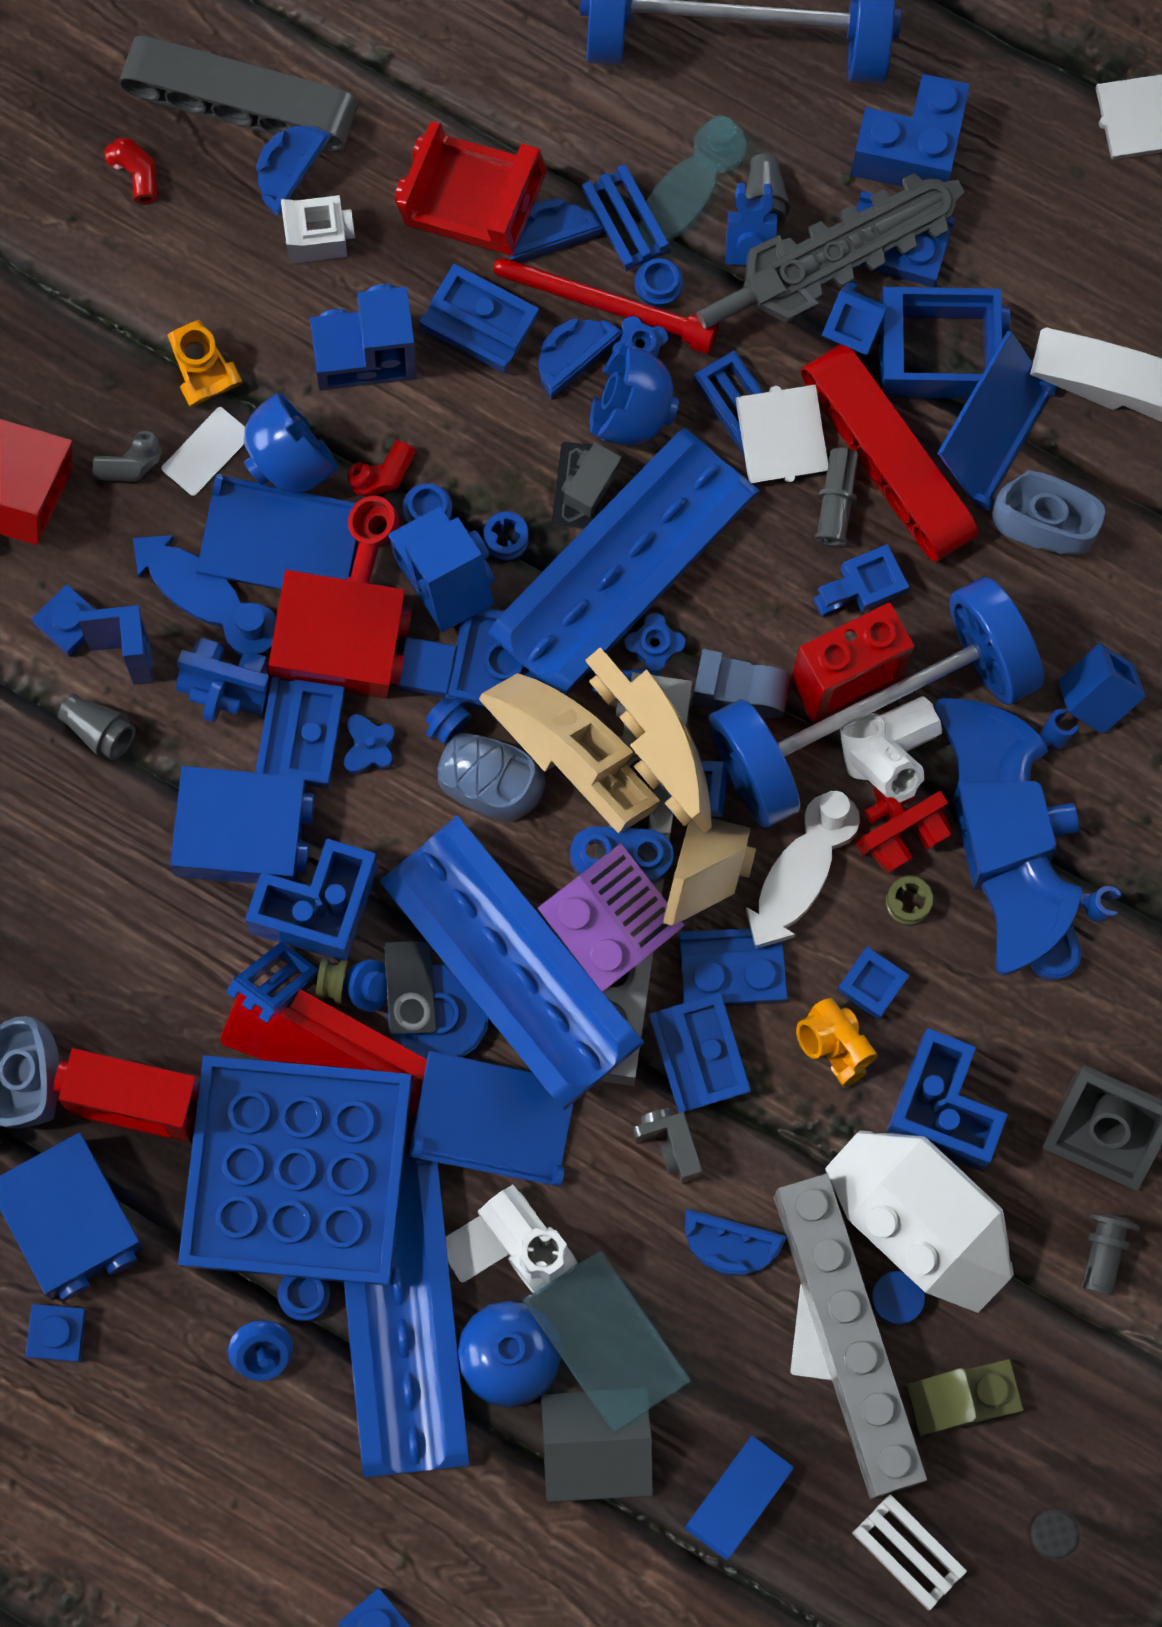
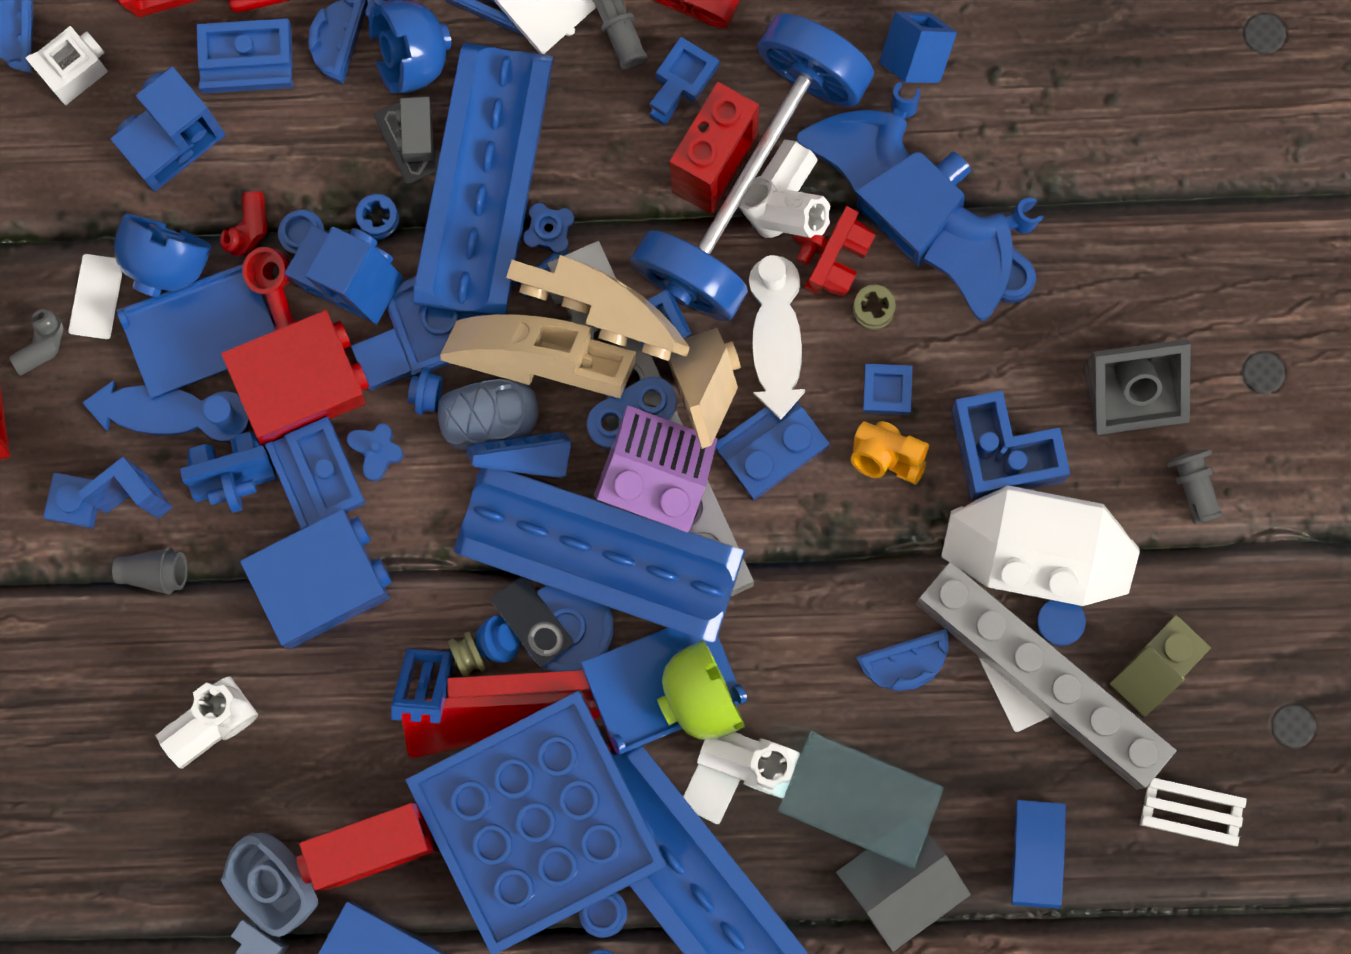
camera: 20 degrees left, 5 degrees up
(71, 891) = (216, 714): none -> white piece
(202, 376) = (56, 237): light orange plate -> none
(318, 916) = (427, 608): blue brick -> none
(506, 1355) = (790, 859): blue cylinder -> none
(507, 837) = (533, 454): none -> blue slope
(518, 1148) = (698, 695): none -> lime cylinder
(679, 1151) = (822, 616): dark grey bracket -> none
(700, 1052) = (789, 528): blue plate -> none
(728, 680) = (626, 223): sand blue leg -> none

